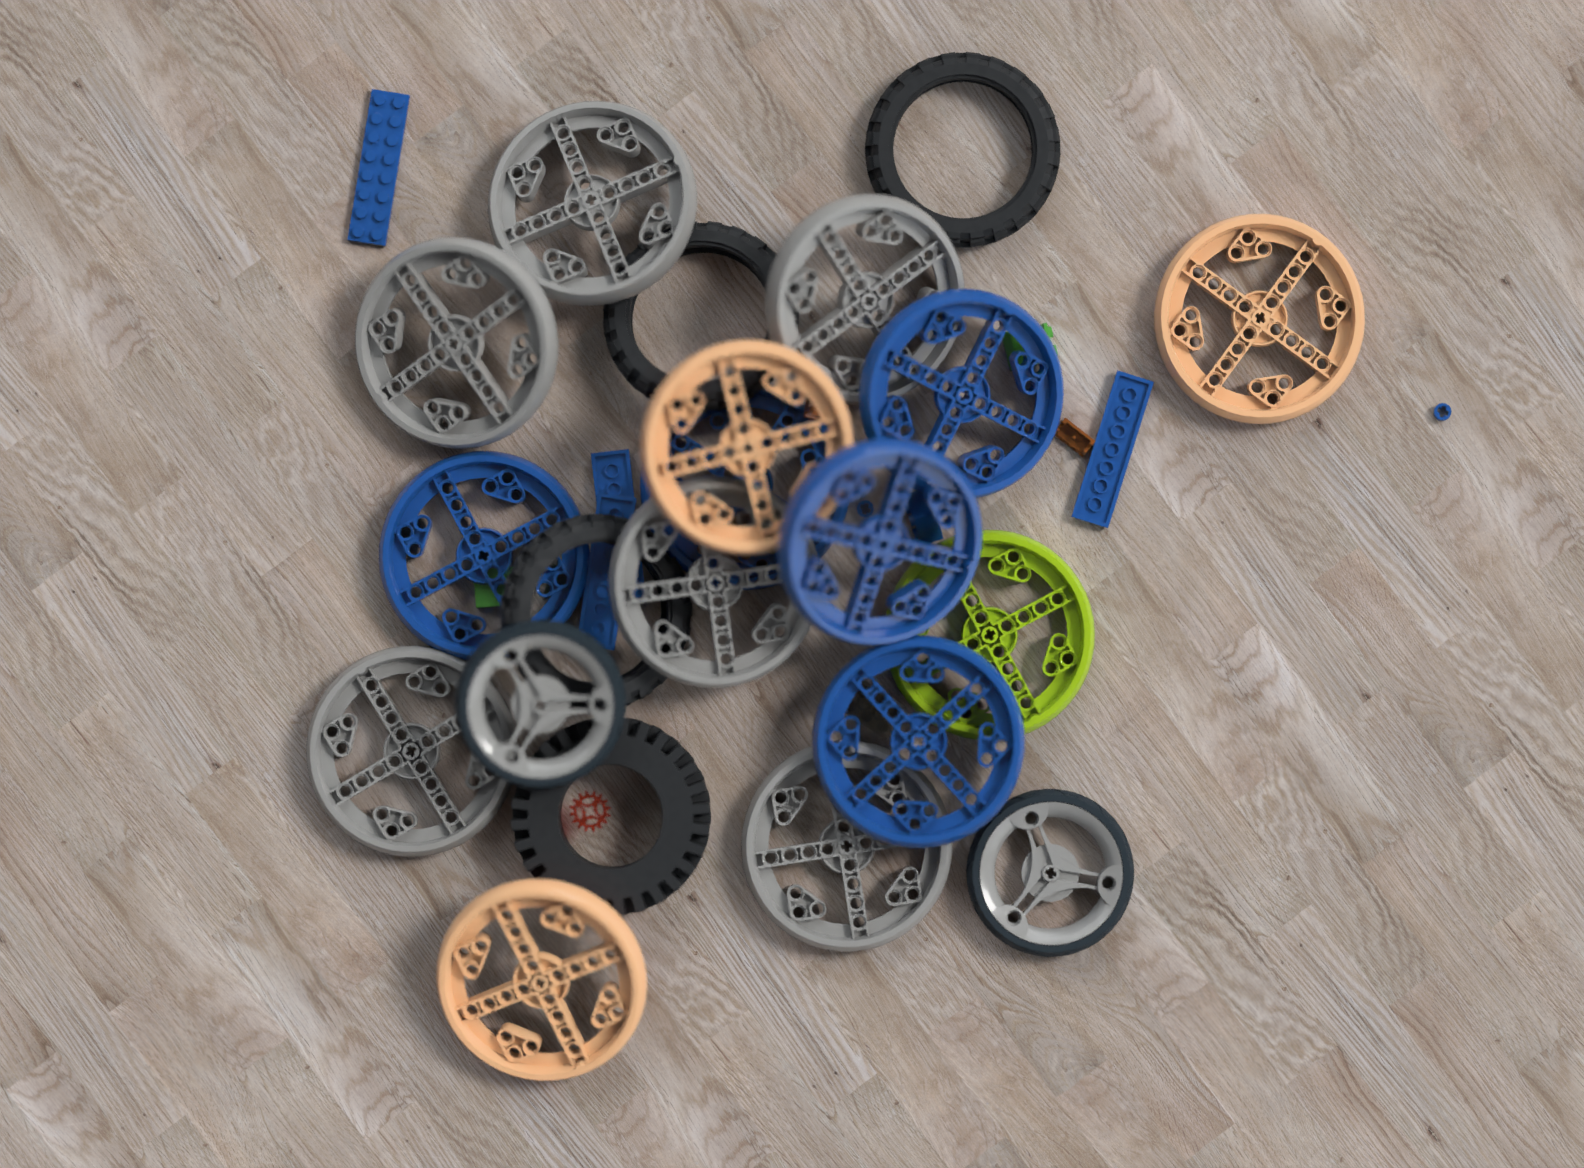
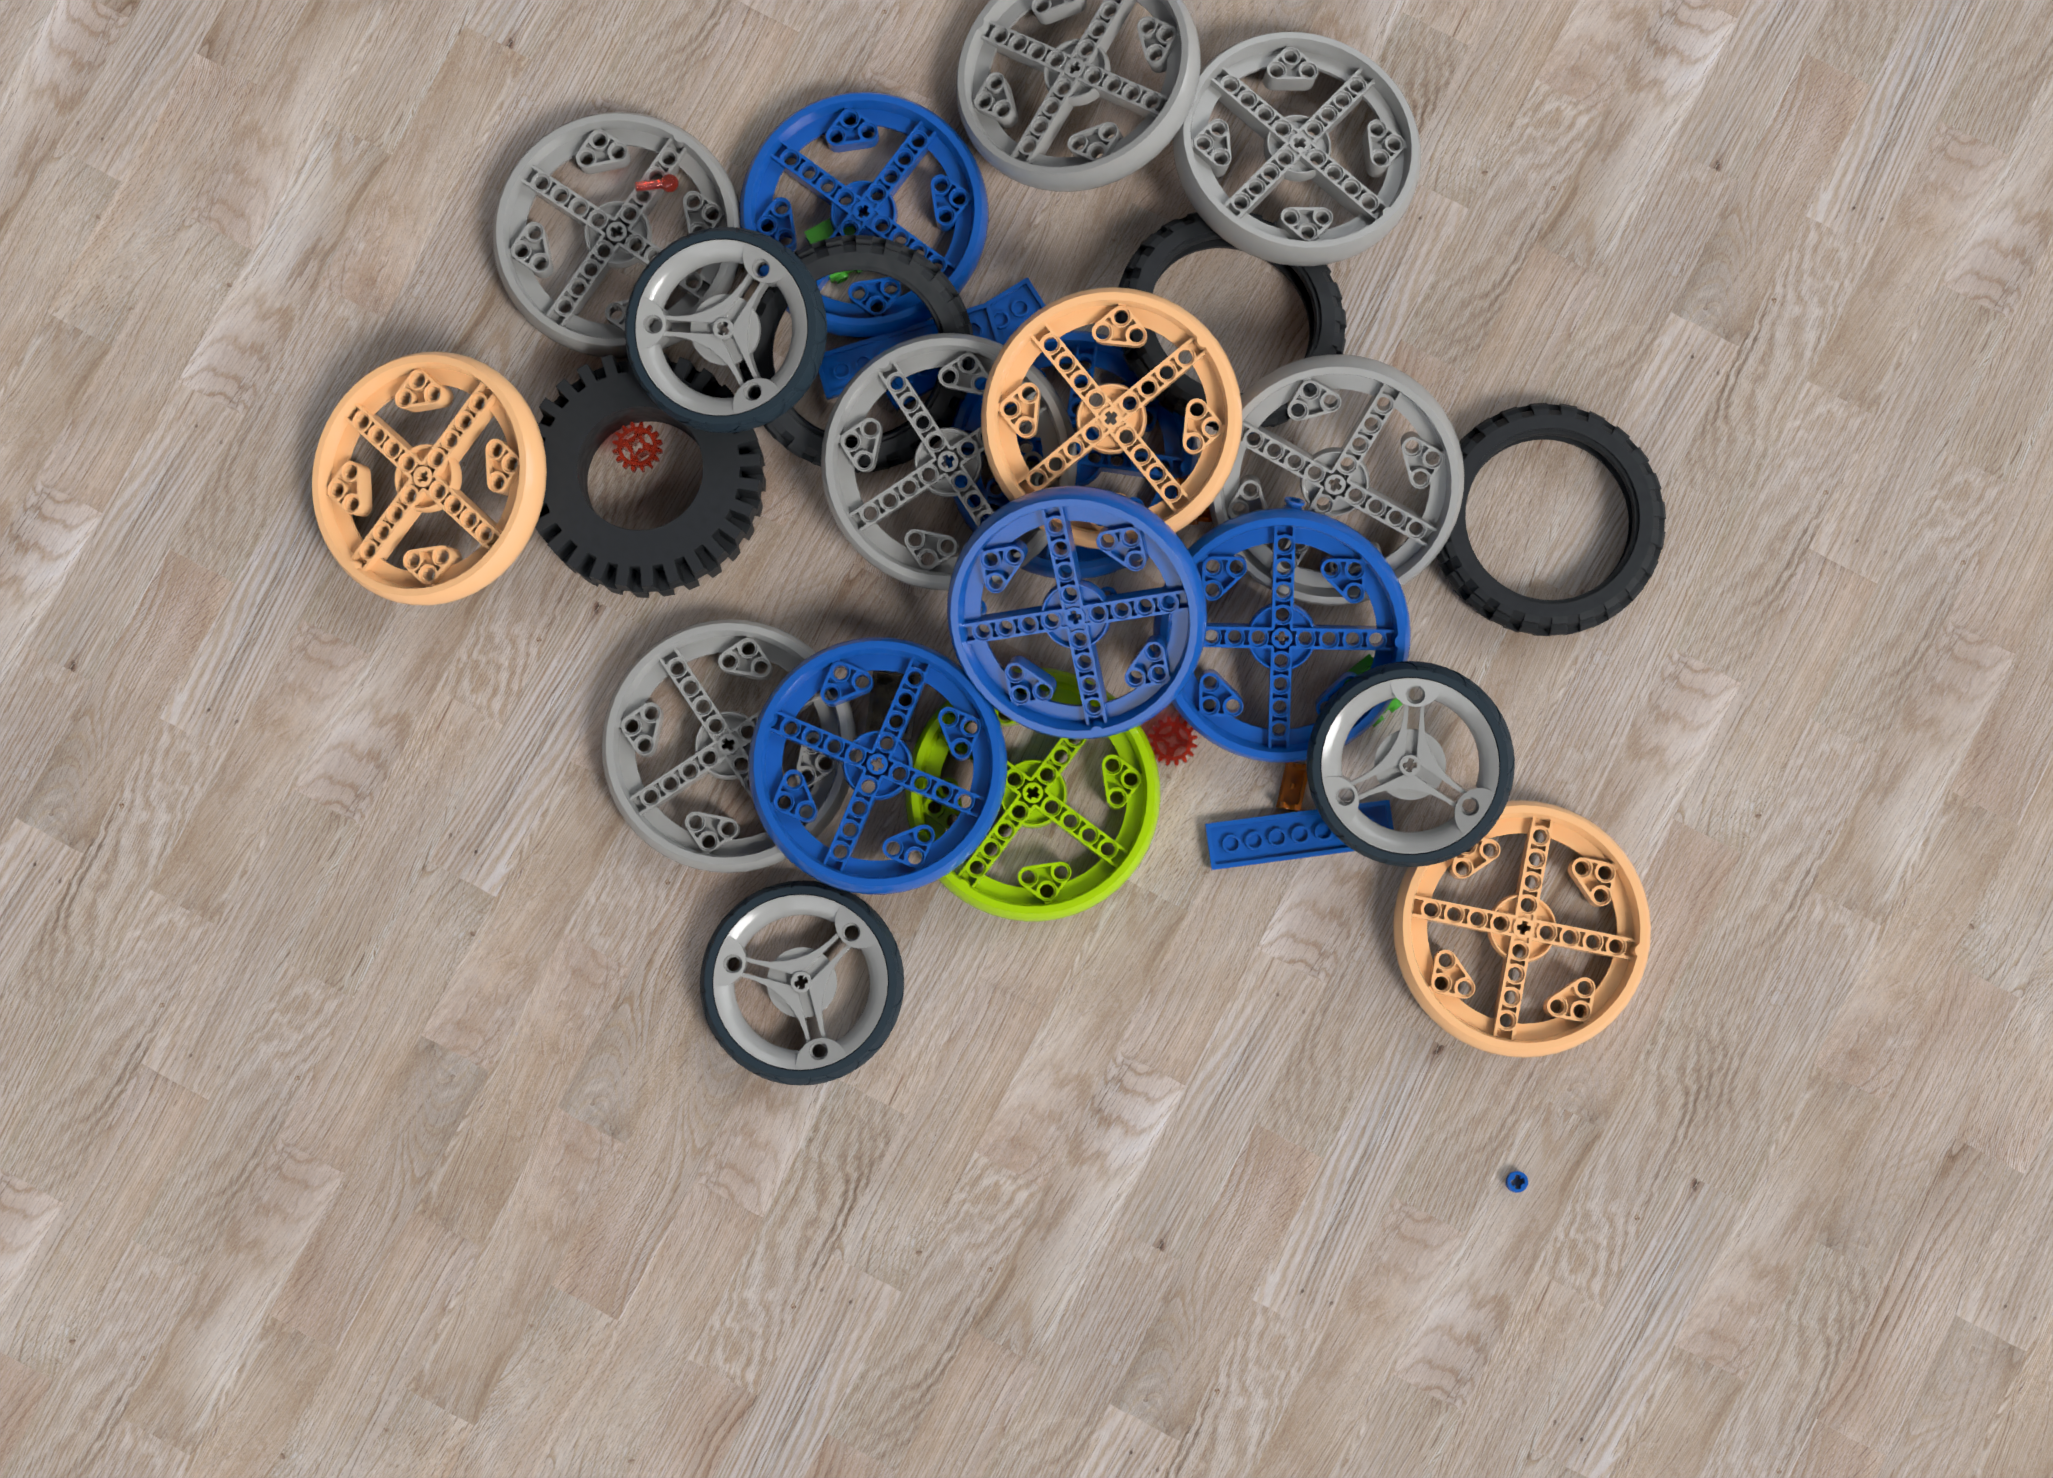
camera: 65 degrees right, 5 degrees down
(392, 694) = (668, 183): none -> clear red bar
(869, 339) = (1293, 502): none -> blue bush
(925, 527) = (1114, 668): blue brick -> none
(1005, 517) = (1183, 743): none -> clear red gear
(1039, 328) = (1437, 685): none -> light grey wheel

